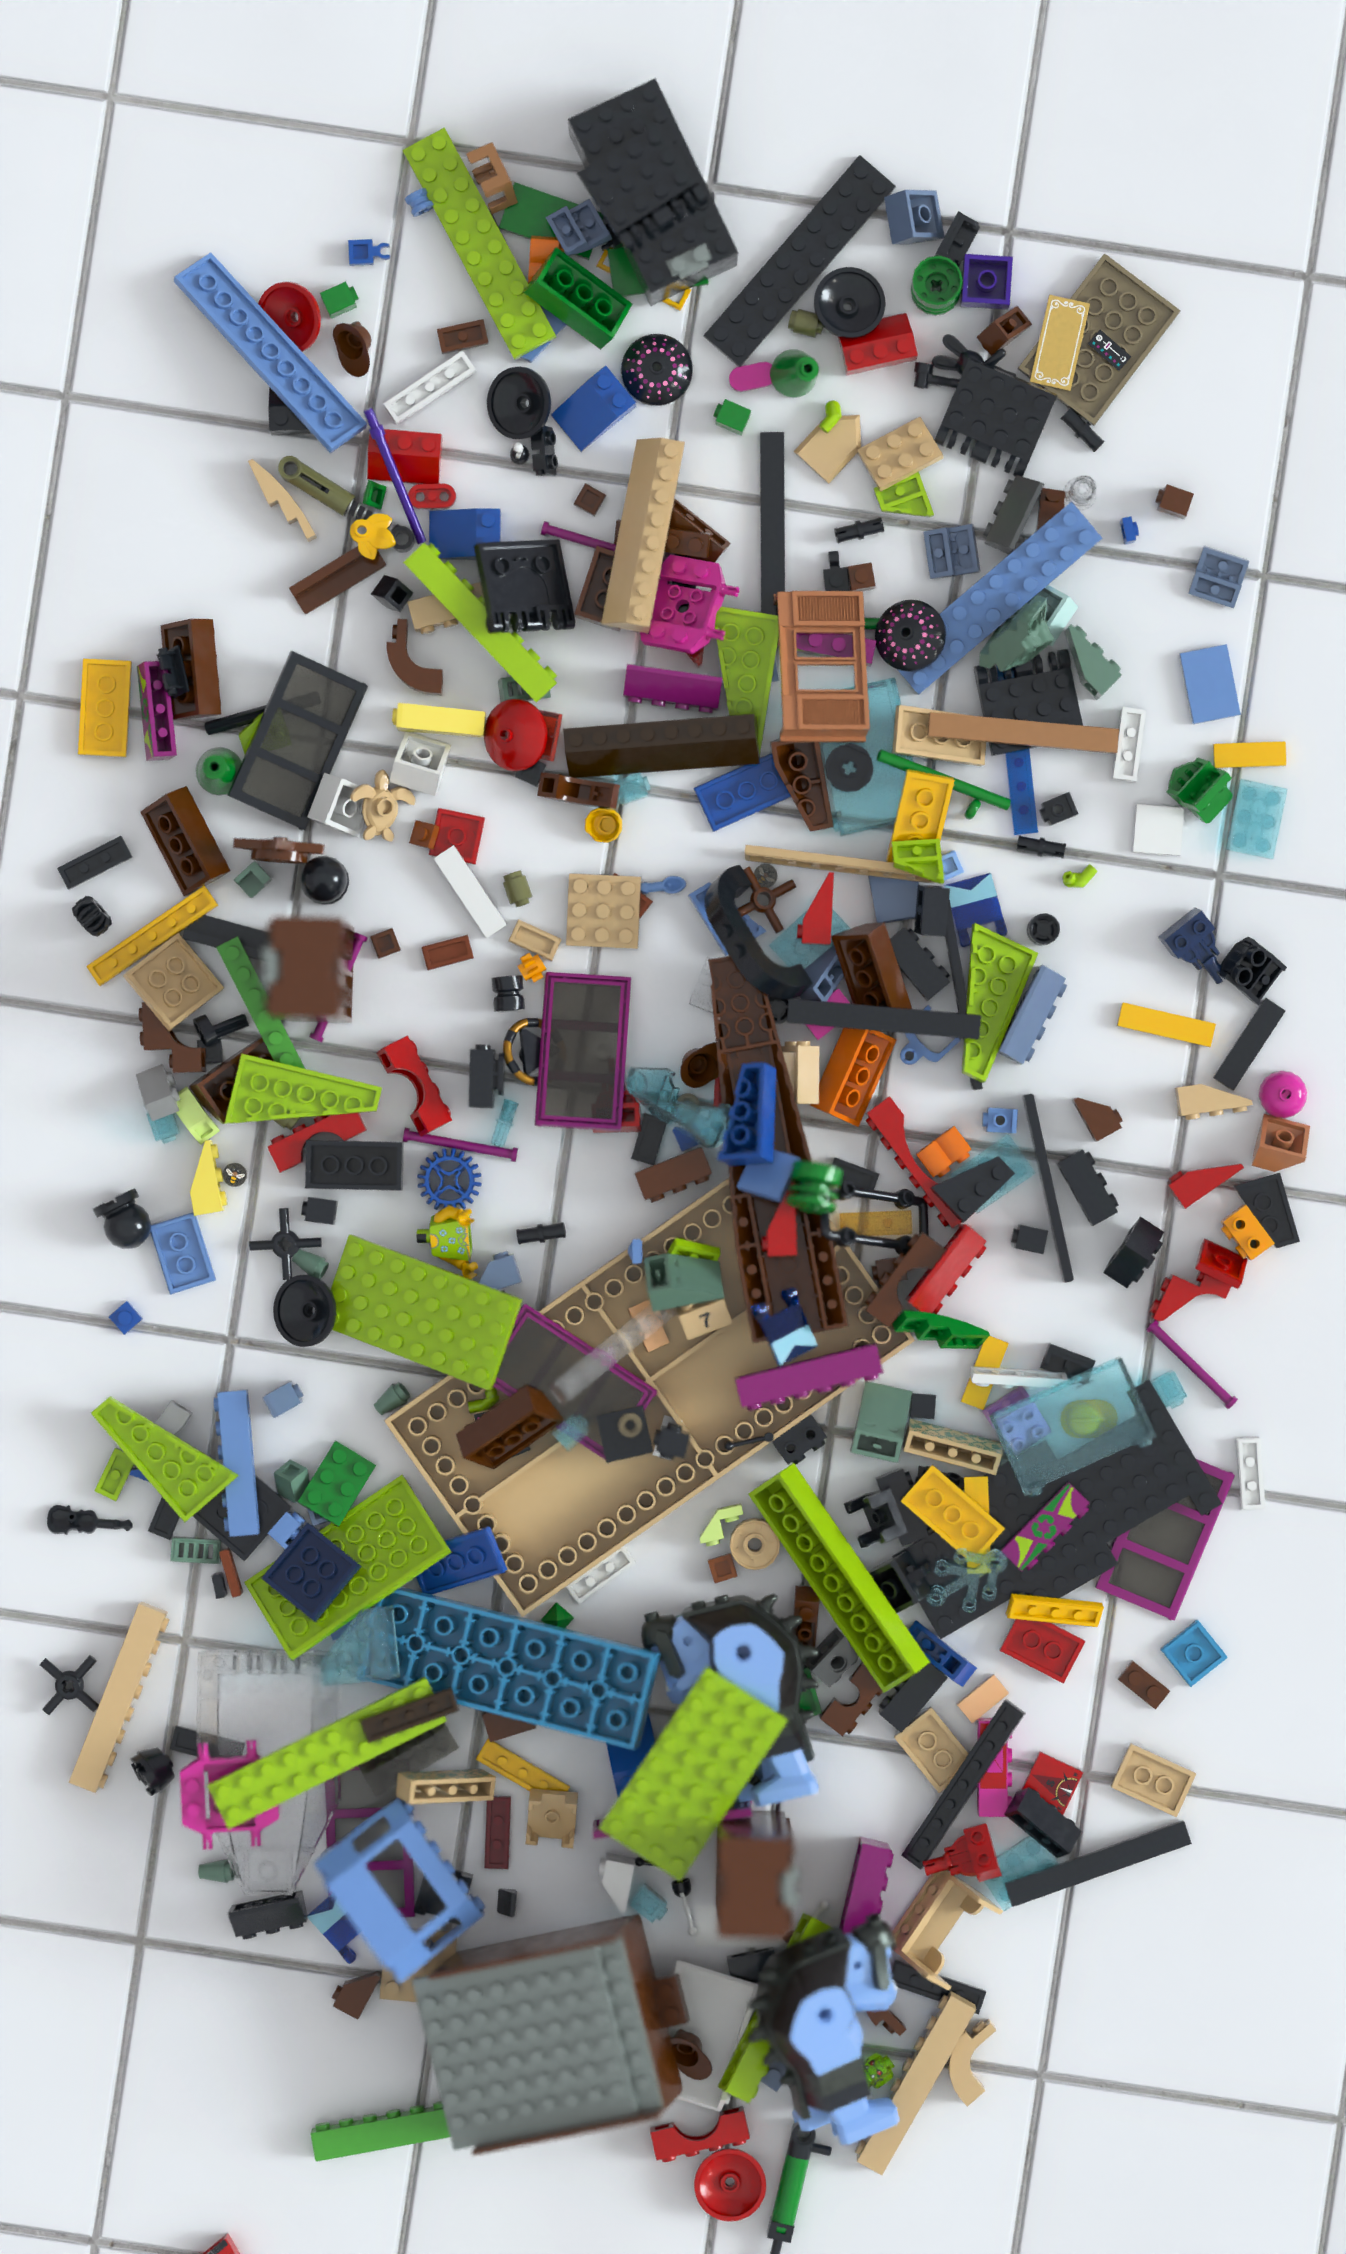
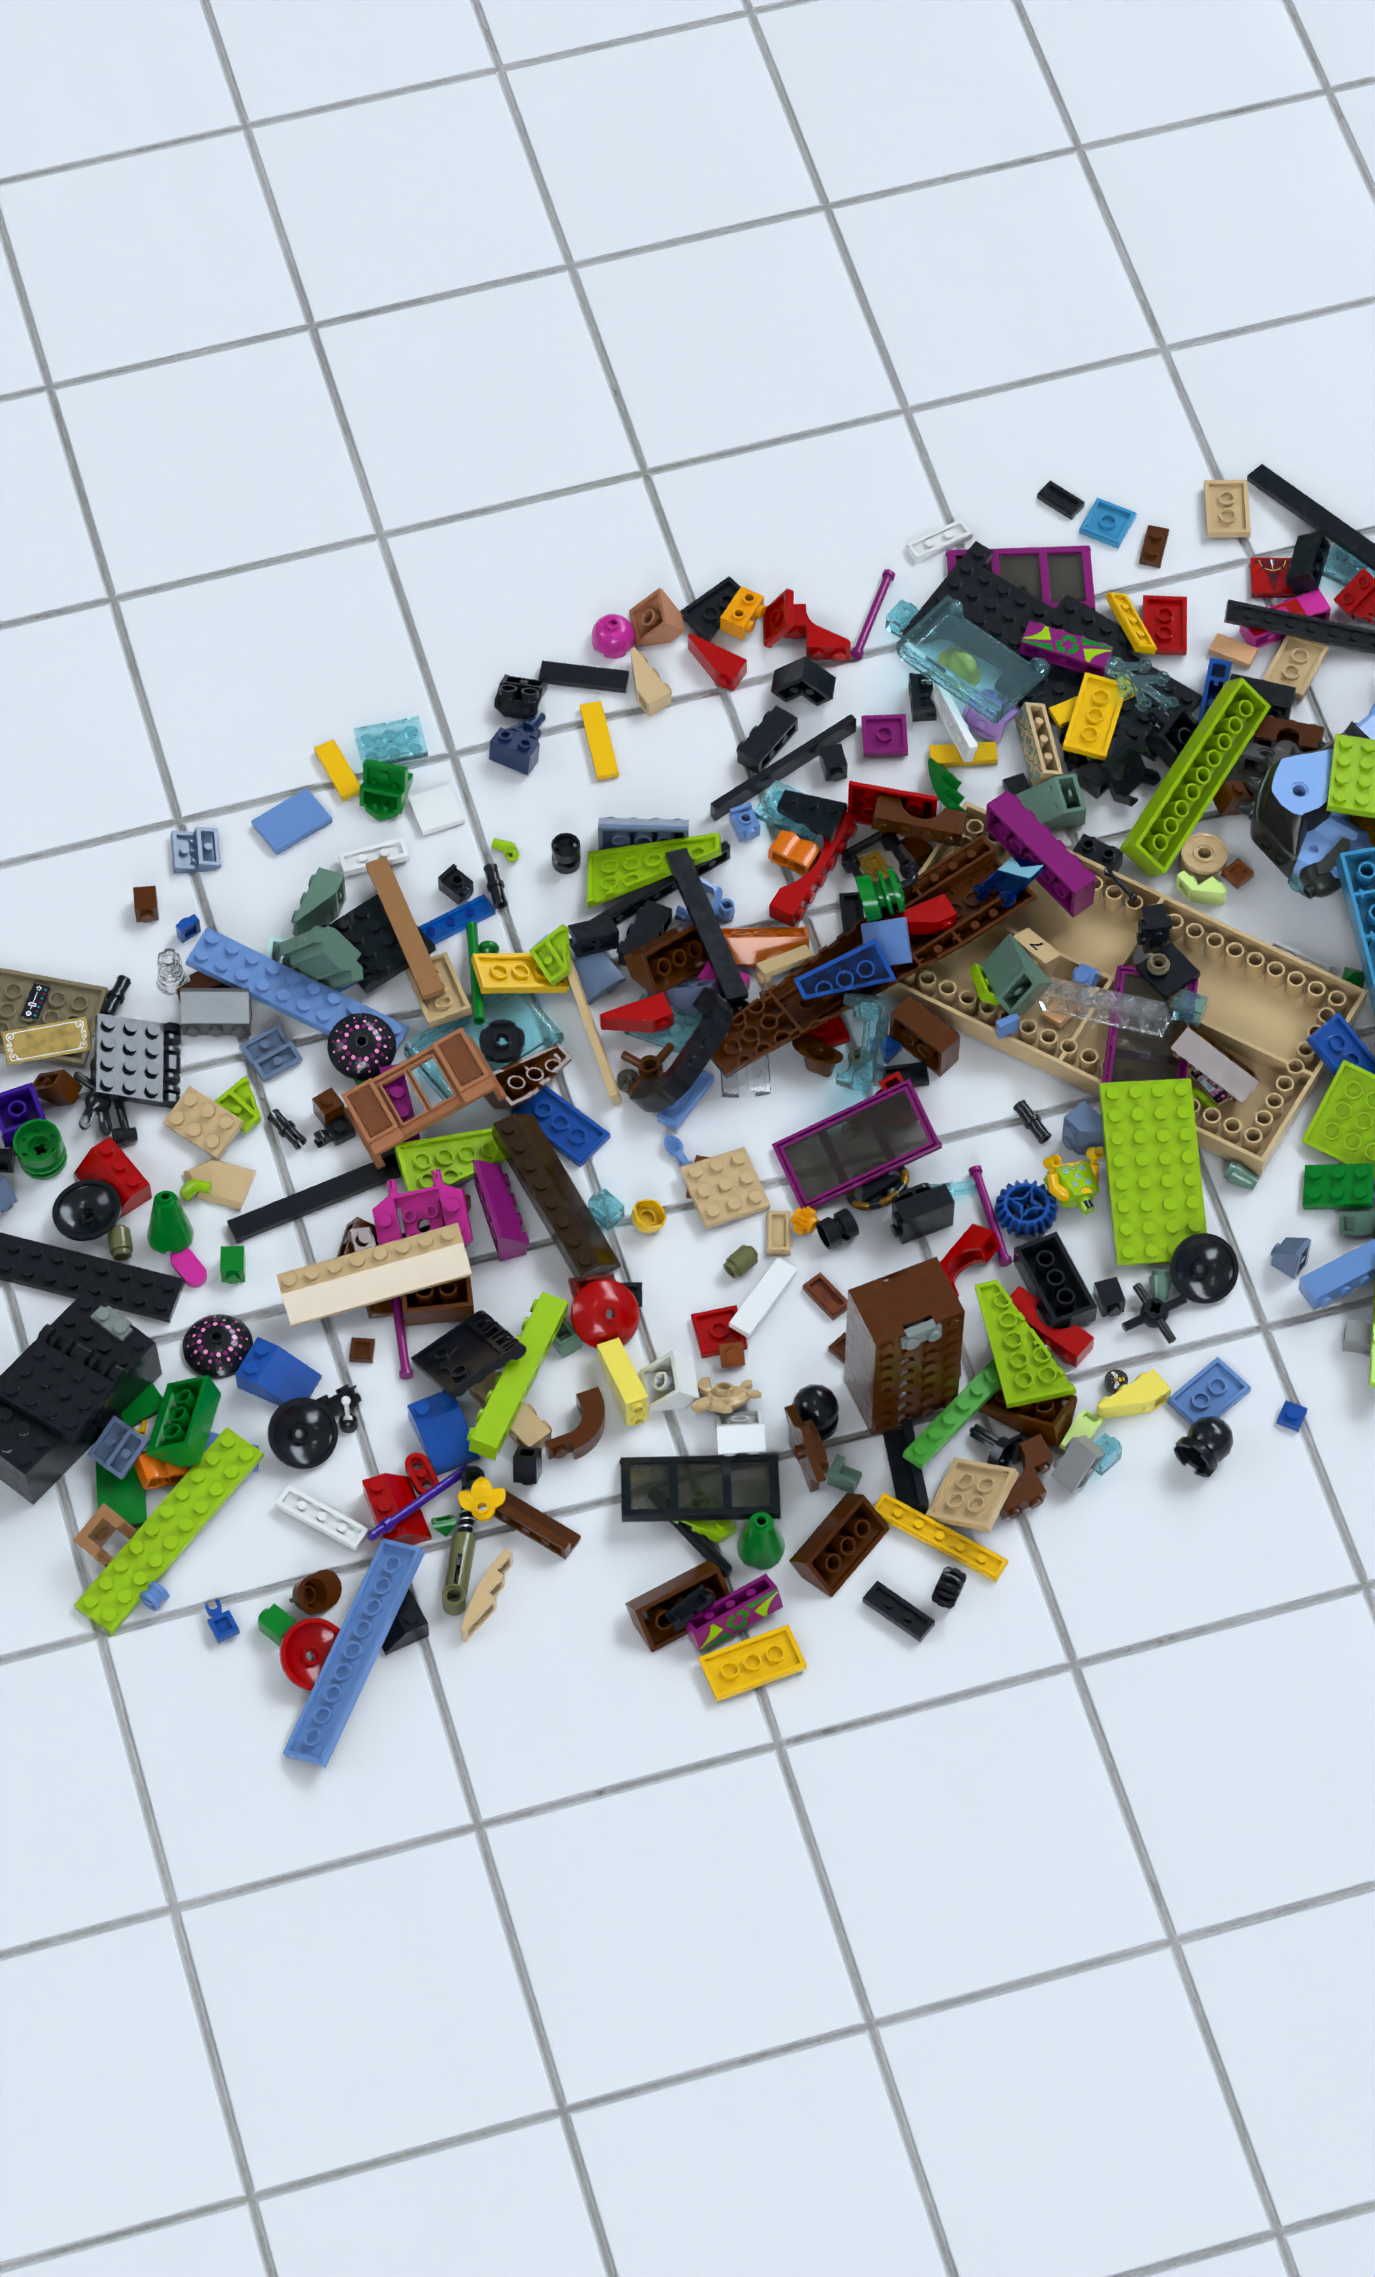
camera: 115 degrees left, 30 degrees down
(462, 336) = (262, 1510): reddish brown plate -> none
(578, 791) = (628, 1244): reddish brown arch -> none
(657, 1353) = (1086, 975): none -> medium blue brick
(975, 902) = (570, 909): clear blue flag -> none
(1040, 1305) = (884, 735): none -> magenta plate
(1098, 1118) = (706, 754): reddish brown slope -> none
(1243, 1620) = (1060, 500): none -> black tile

